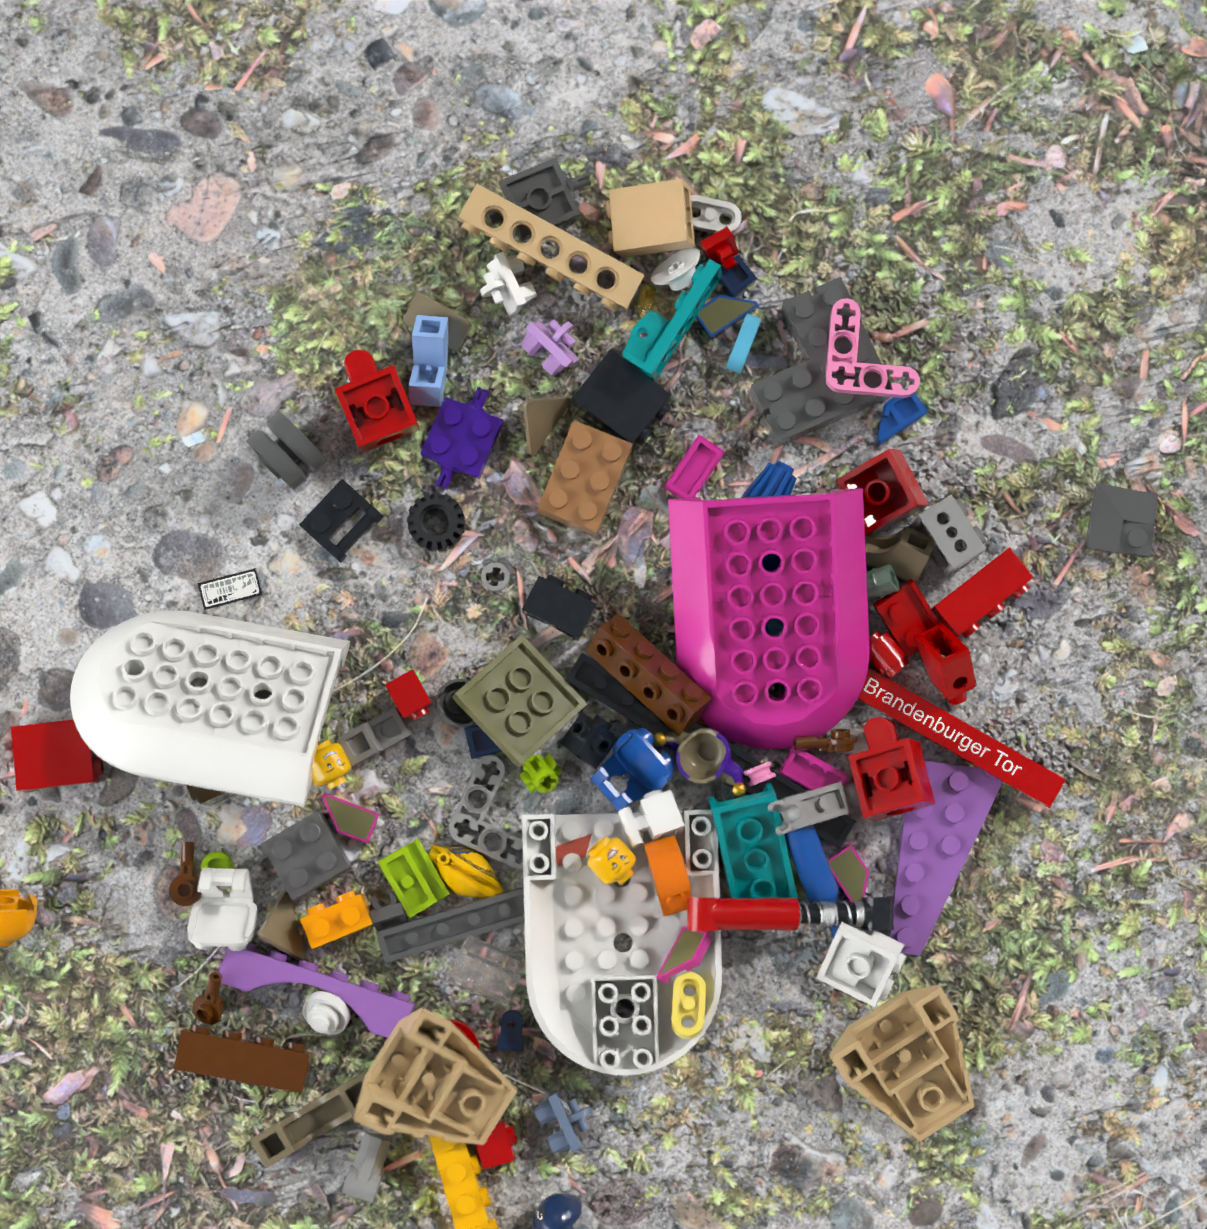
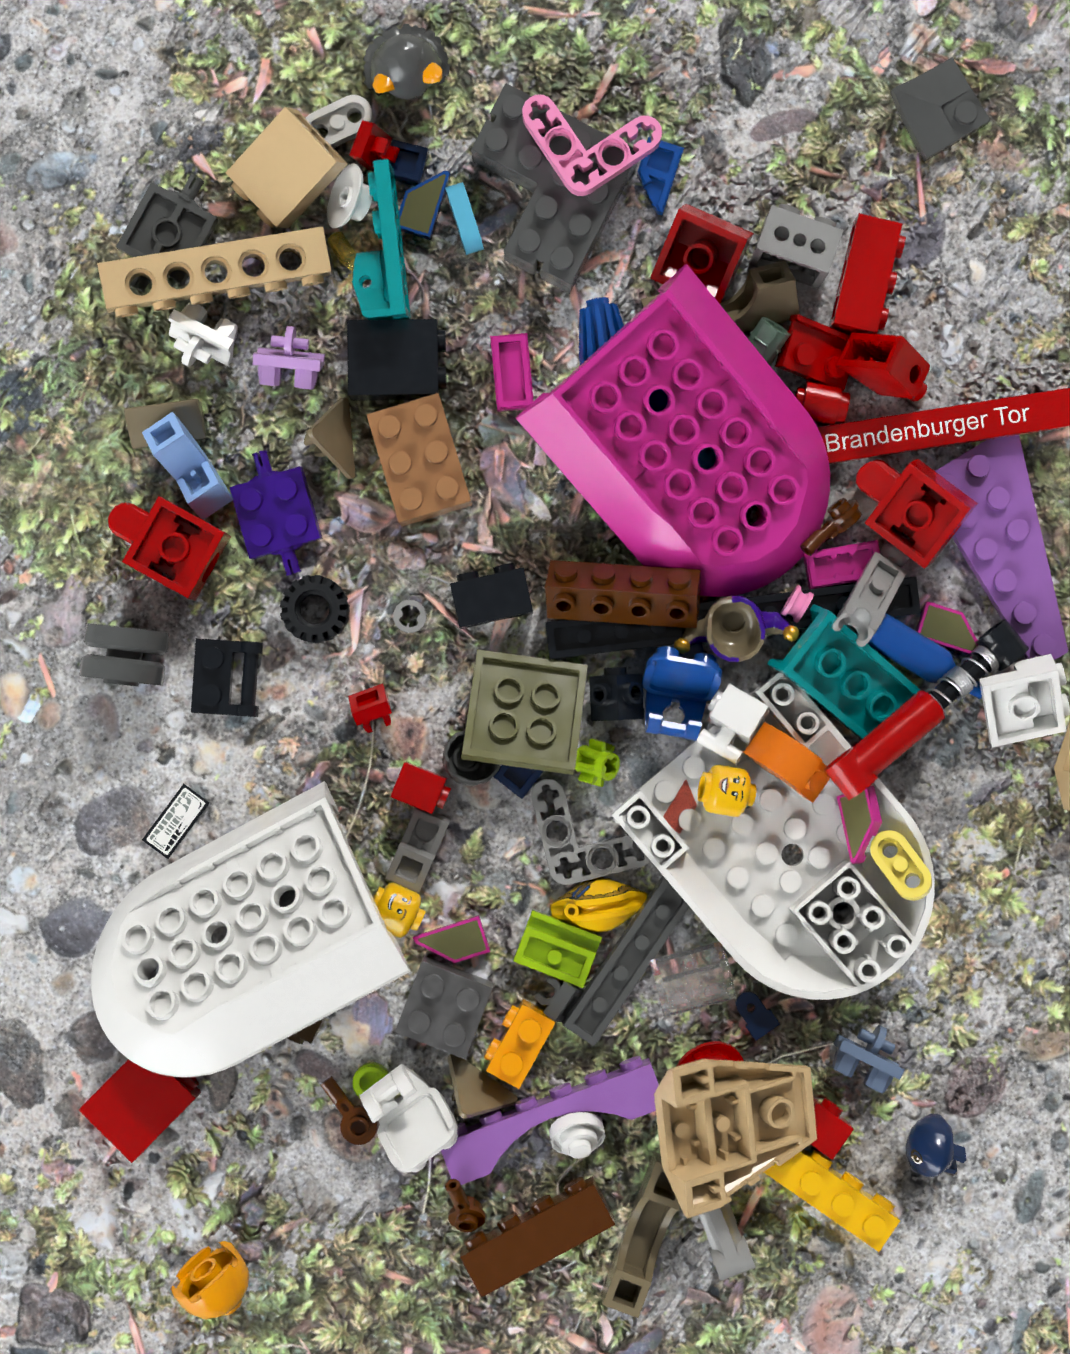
camera: 40 degrees left, 5 degrees up
(420, 614) = (370, 705): none -> red tile
(787, 211) = (405, 62): none -> dark grey hair

